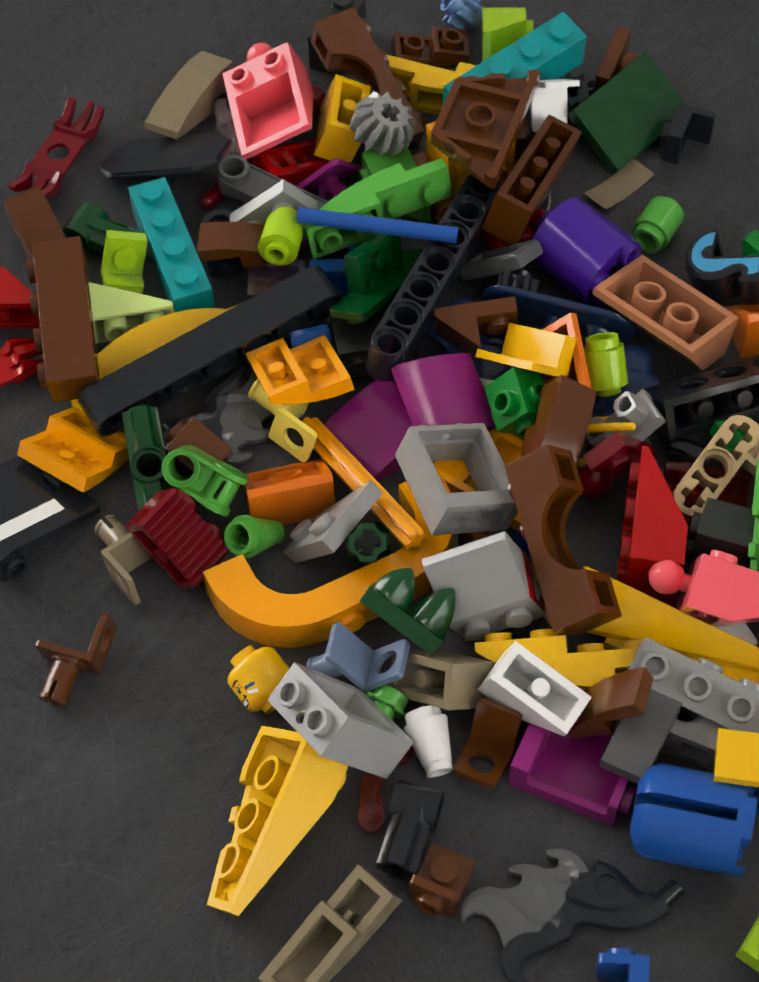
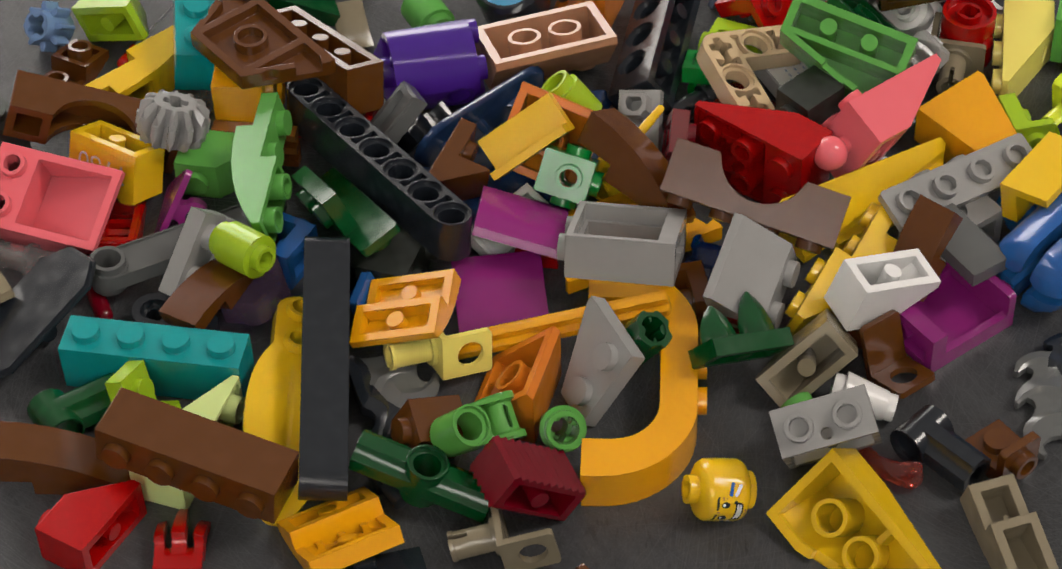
camera: 60 degrees left, 10 degrees down
(357, 661) = (755, 405): sand blue bracket -> none
(377, 225) = (303, 168): blue bar -> none

